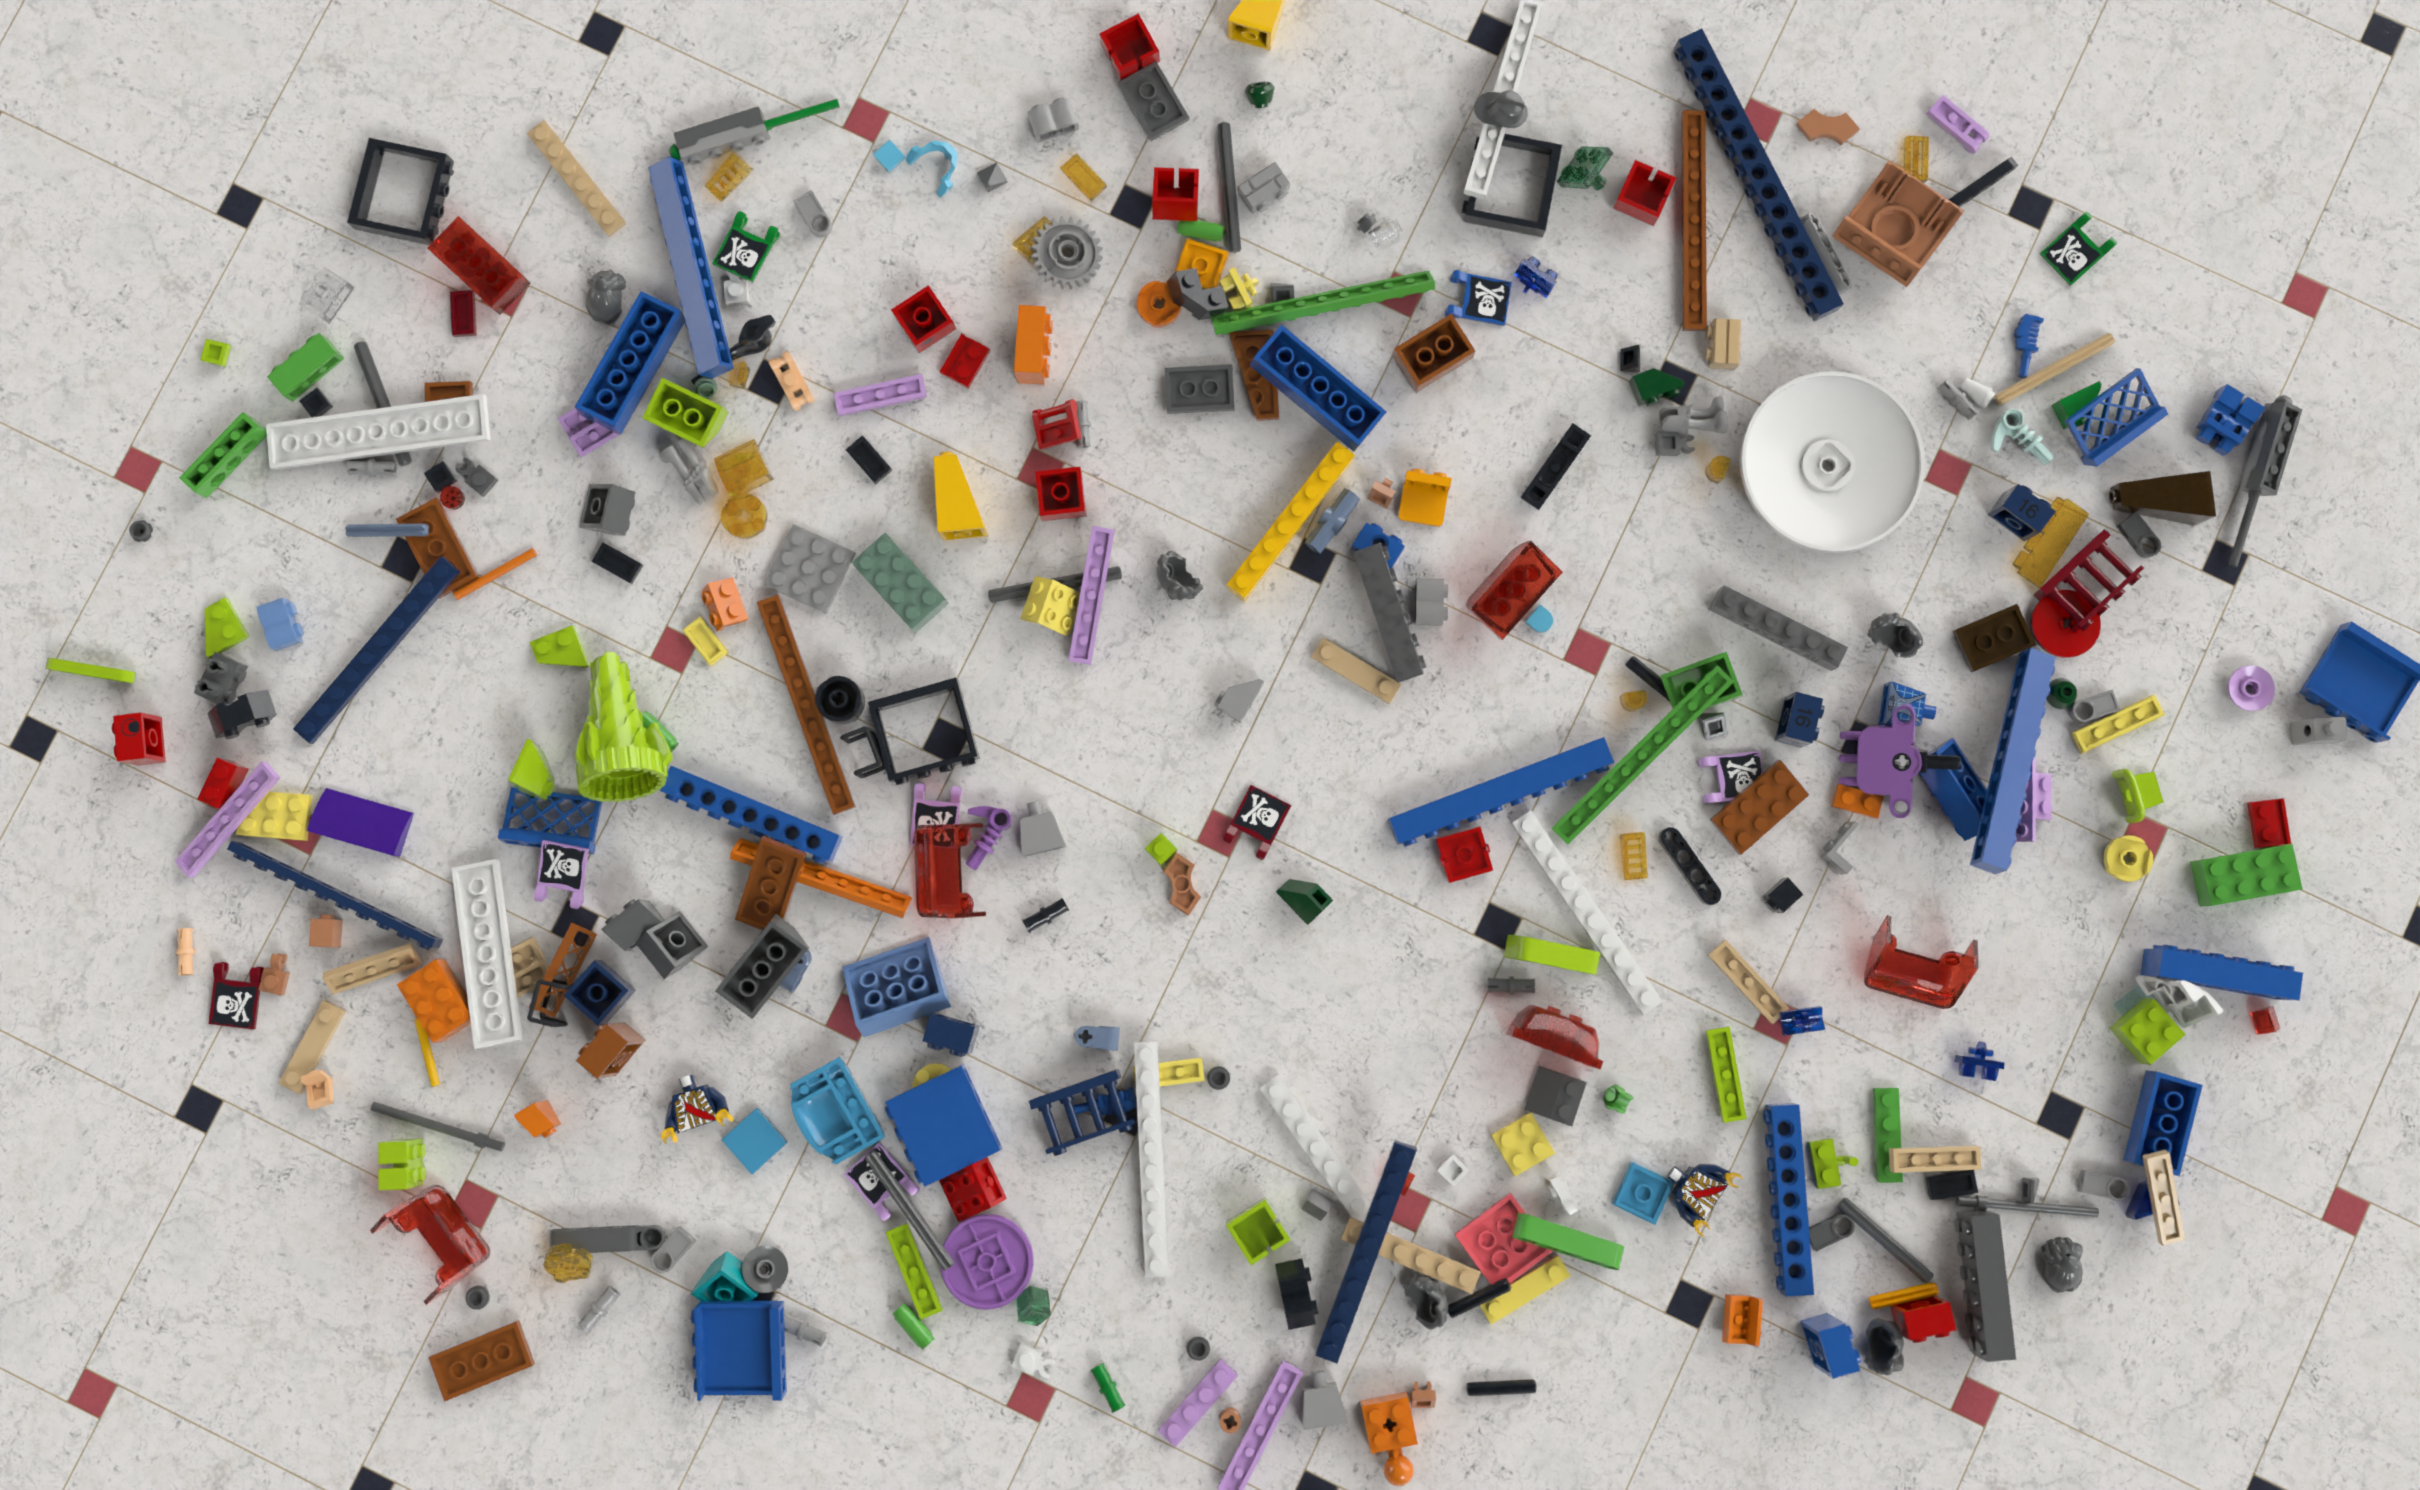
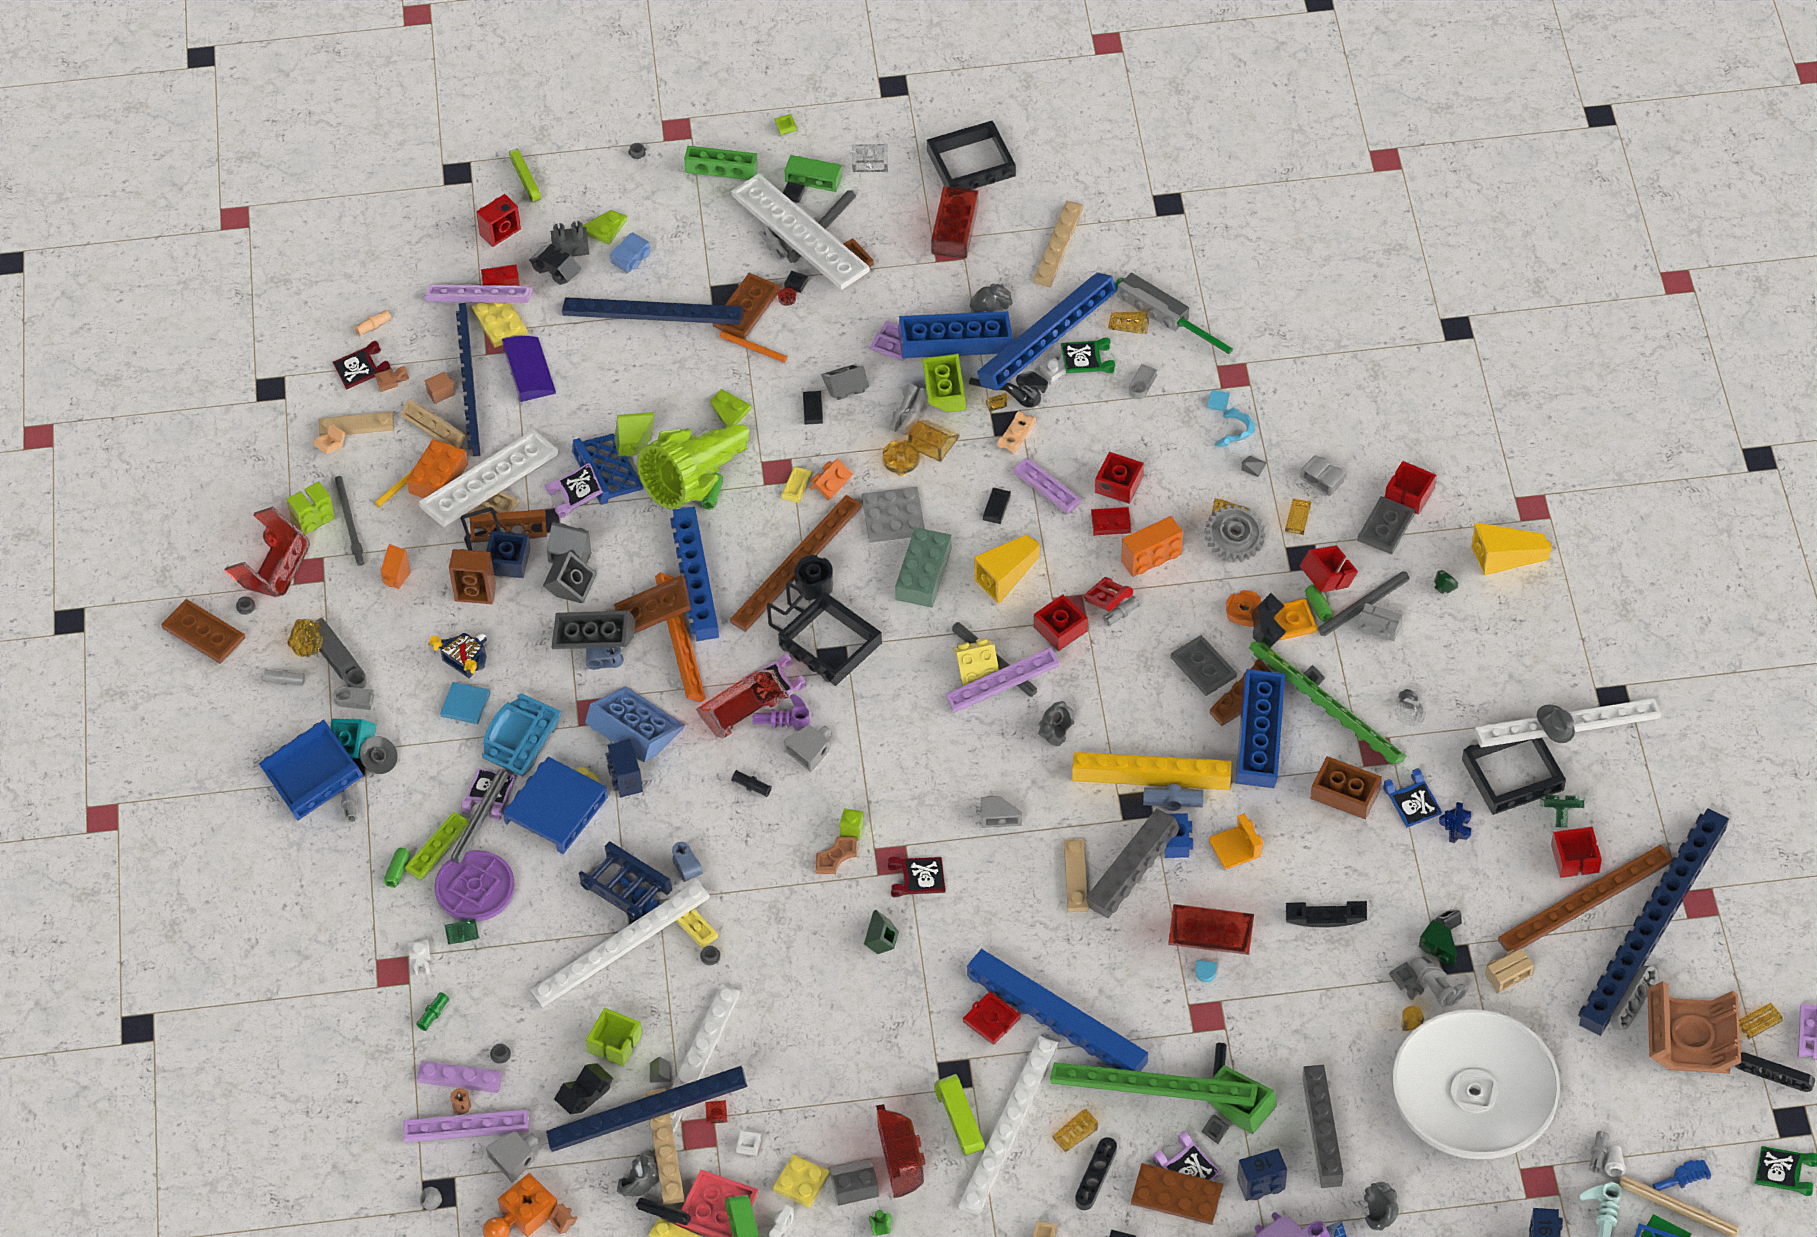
camera: 55 degrees right, 30 degrees down
(386, 530) = (737, 271): sand blue axle -> none
(463, 313) = (916, 235): dark red tile -> none
(478, 478) = (811, 303): dark grey plate -> none
(705, 387) = (972, 387): sand green plate -> none
(973, 1189) = (523, 847): red bracket -> none
(1233, 281) = (1298, 649): light yellow hips -> none
(1382, 493) = (1218, 816): nougat tile -> none
(1430, 602) = (1162, 890): light grey brick -> none
(1511, 985) = (916, 1104): dark grey pin -> none
(1633, 700) = (1193, 1062): clear yellow brick -> none
(1820, 126) = (1728, 942): nougat tile -> none

